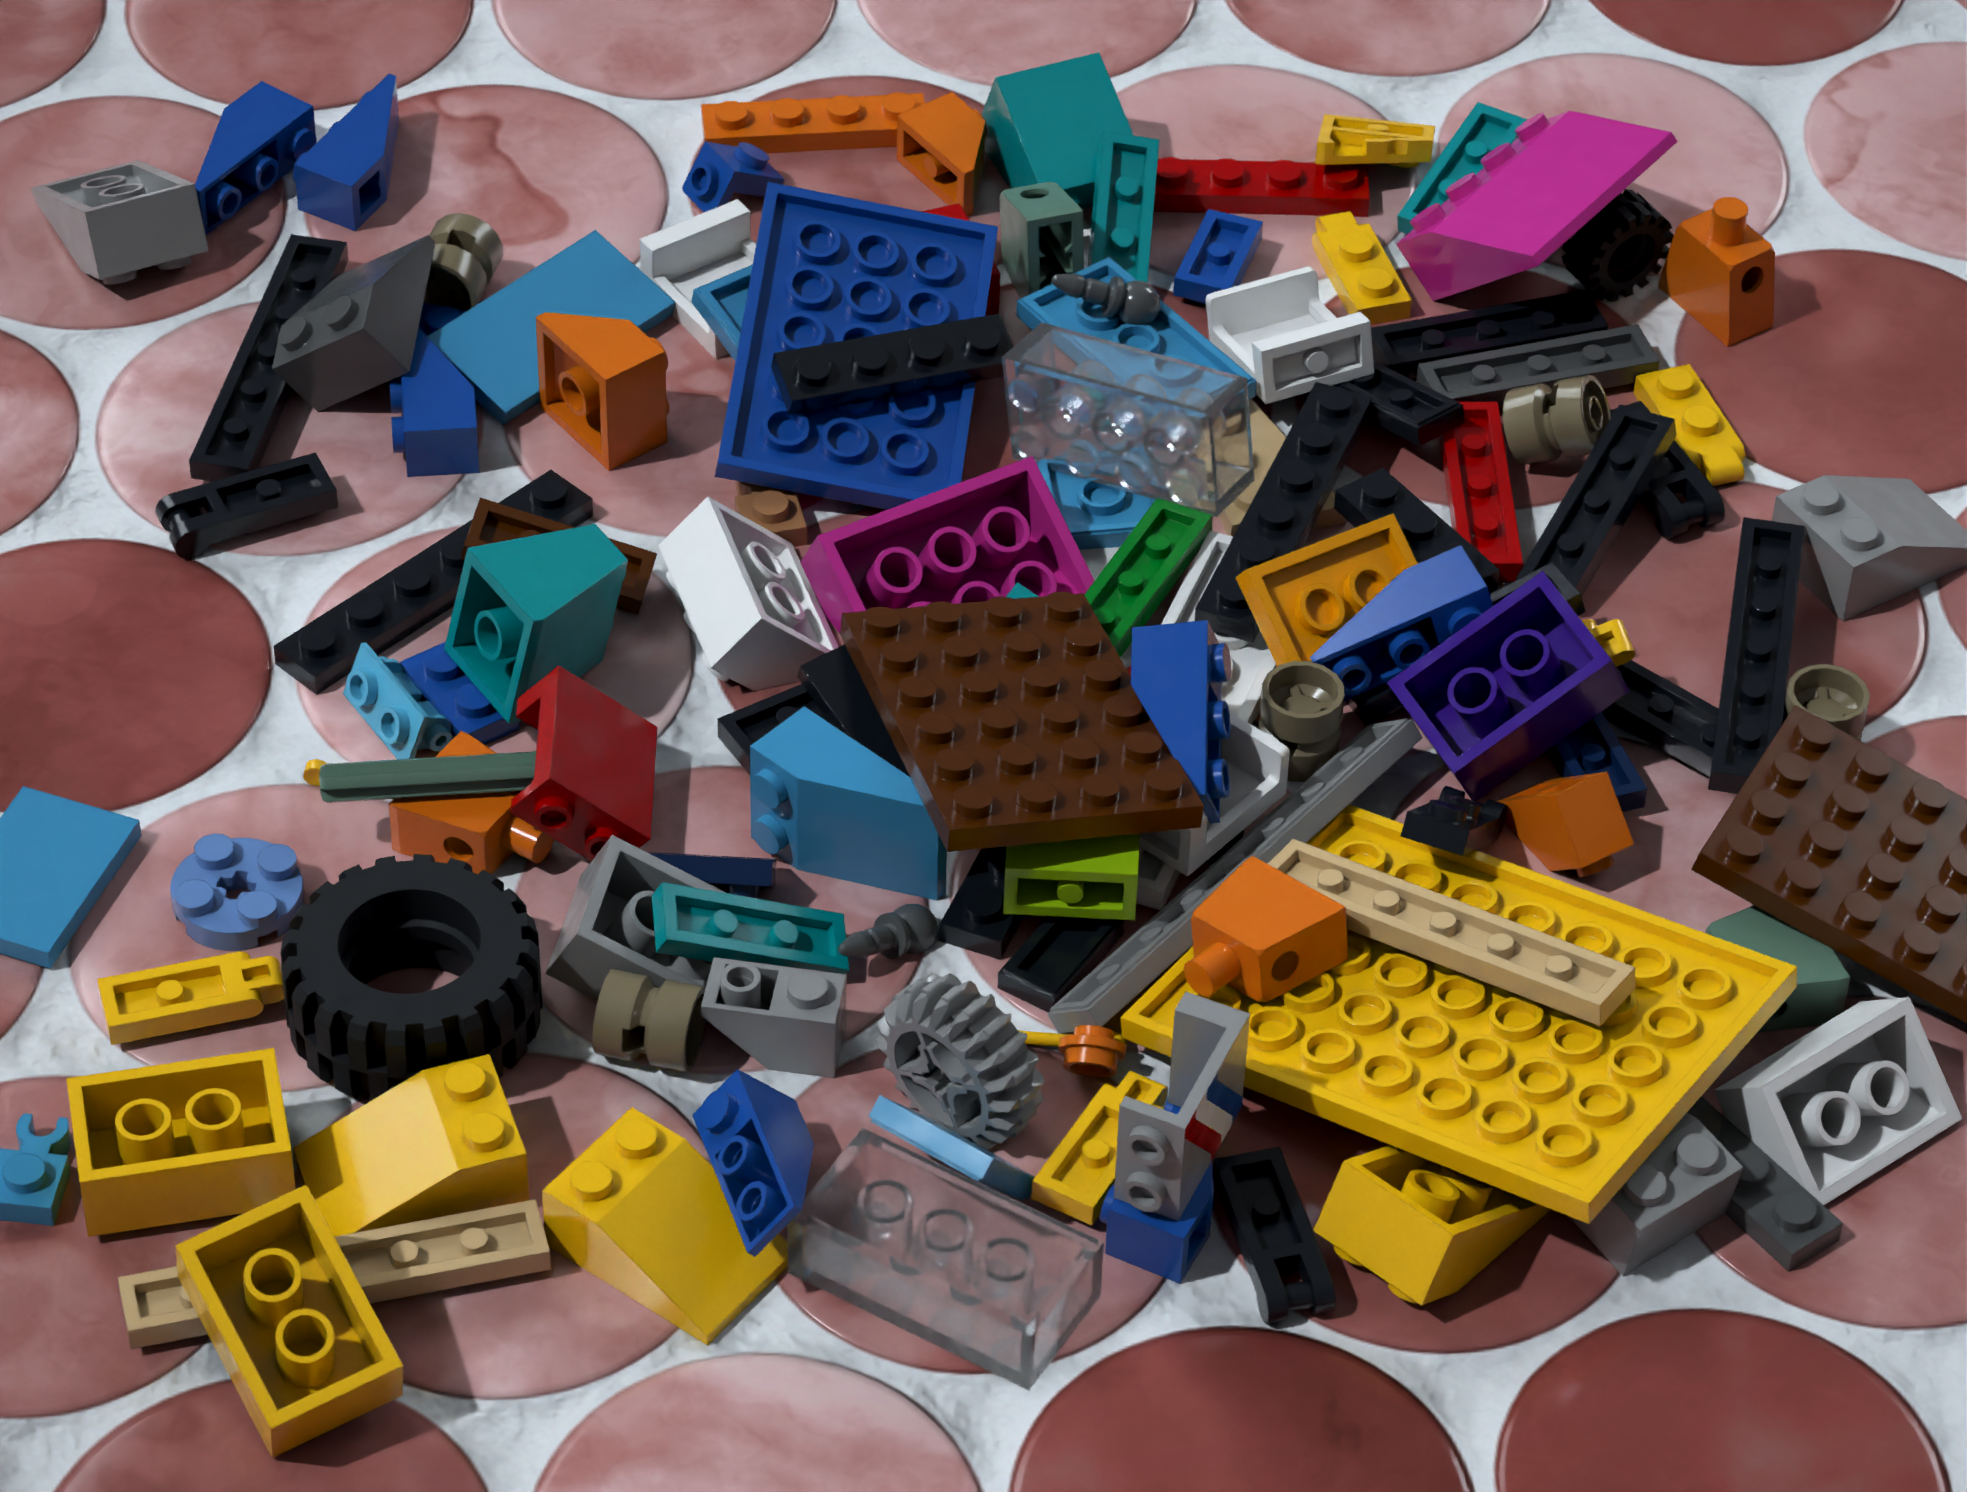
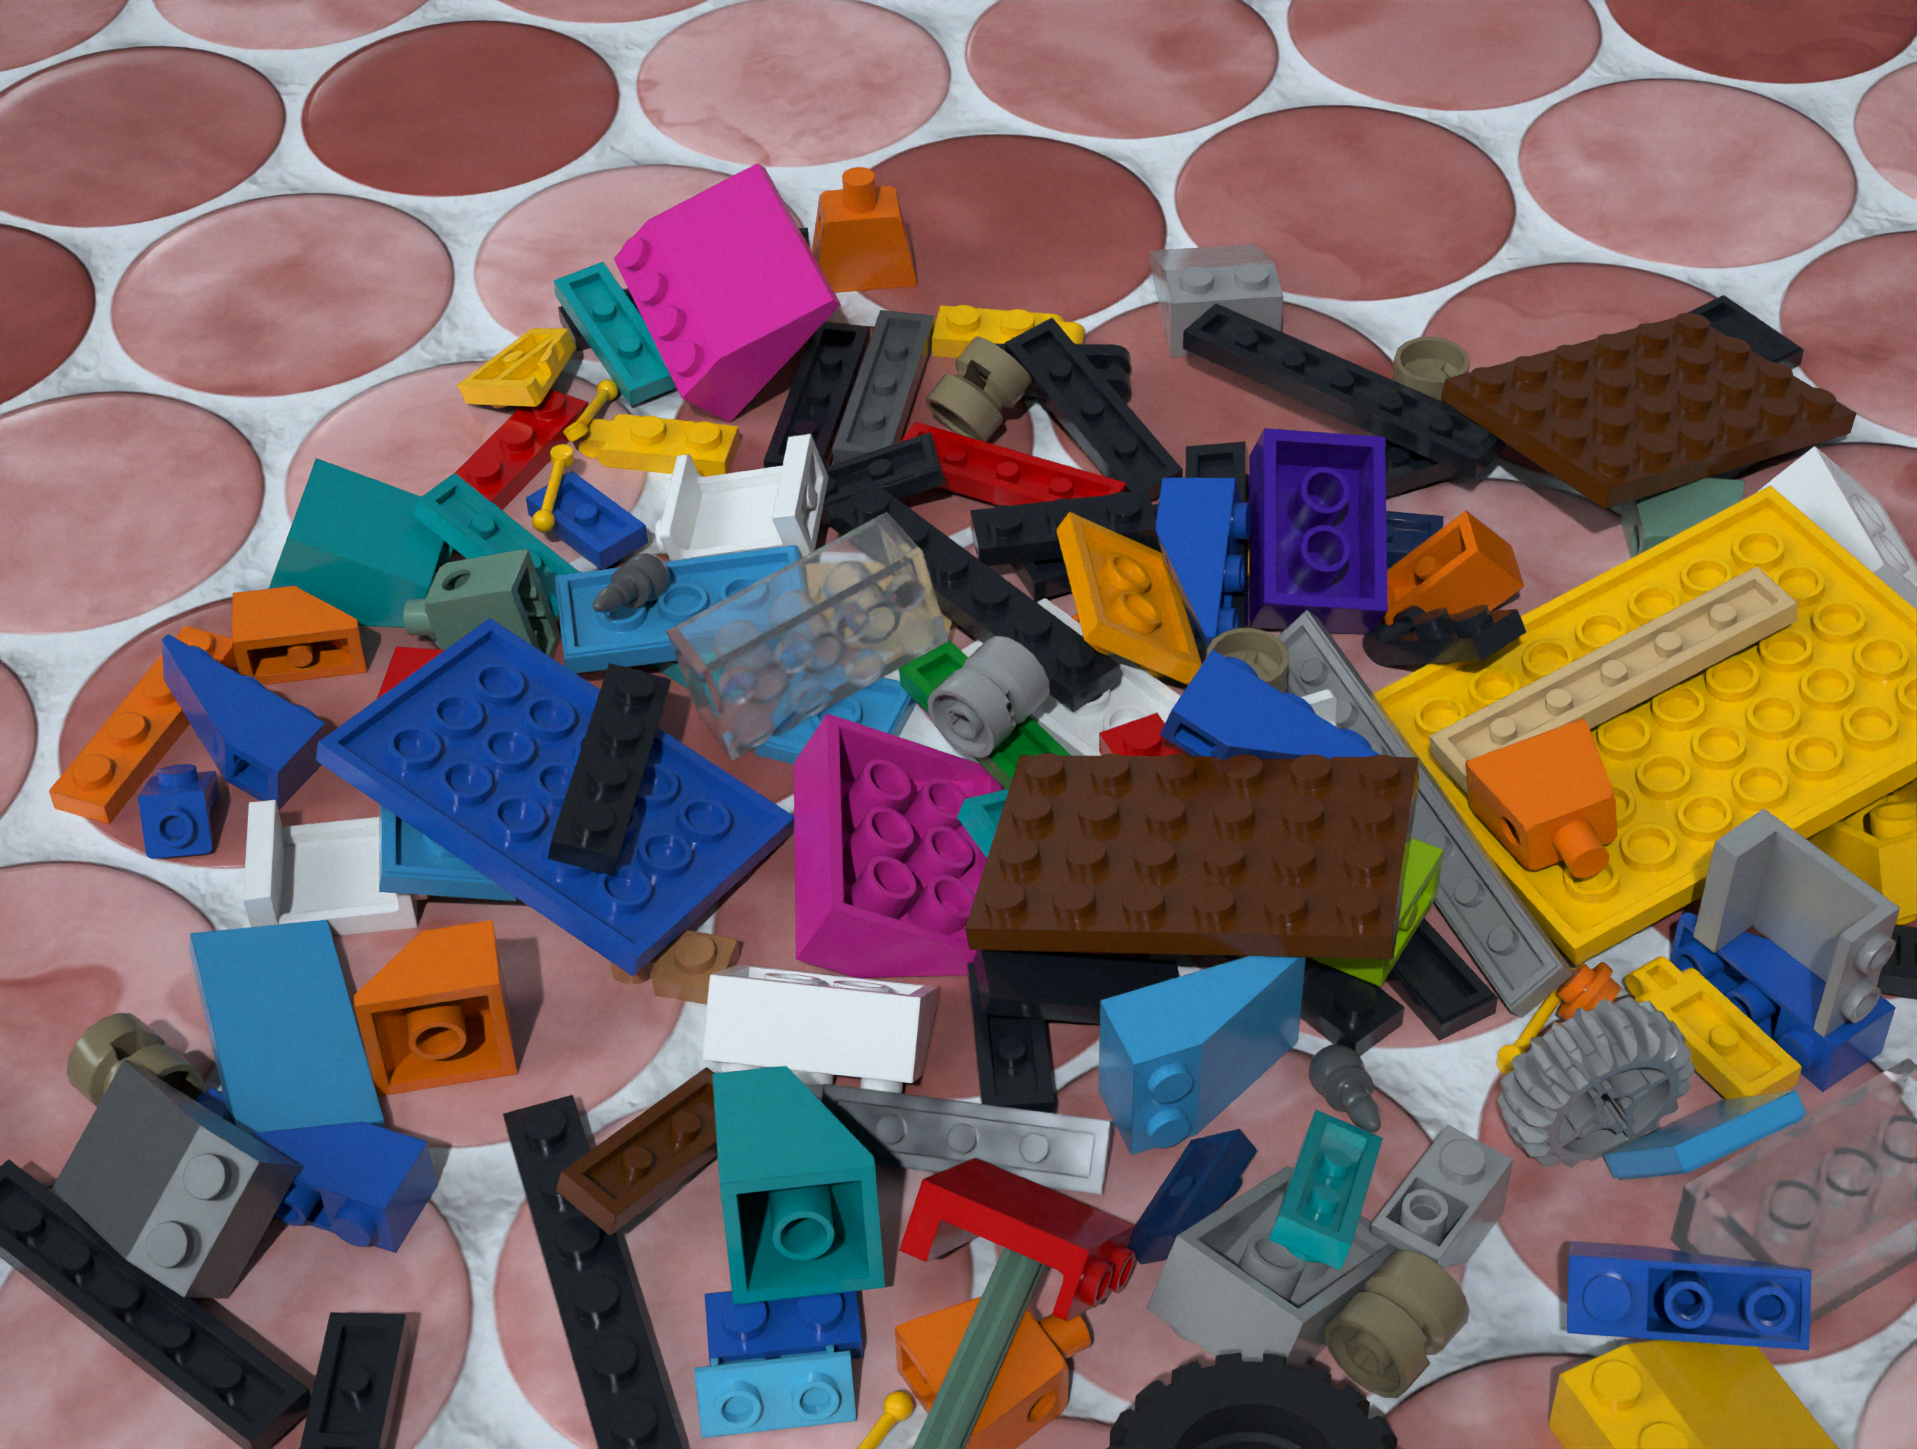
camera: 60 degrees left, 0 degrees up
(686, 721) = (942, 1133): none -> plate
(825, 147) = (247, 730): none -> blue slope
(1126, 544) = (988, 696): none -> light grey wheel
(1270, 207) = (561, 457): none -> yellow hinge
(1323, 204) = (606, 391): none -> yellow hinge

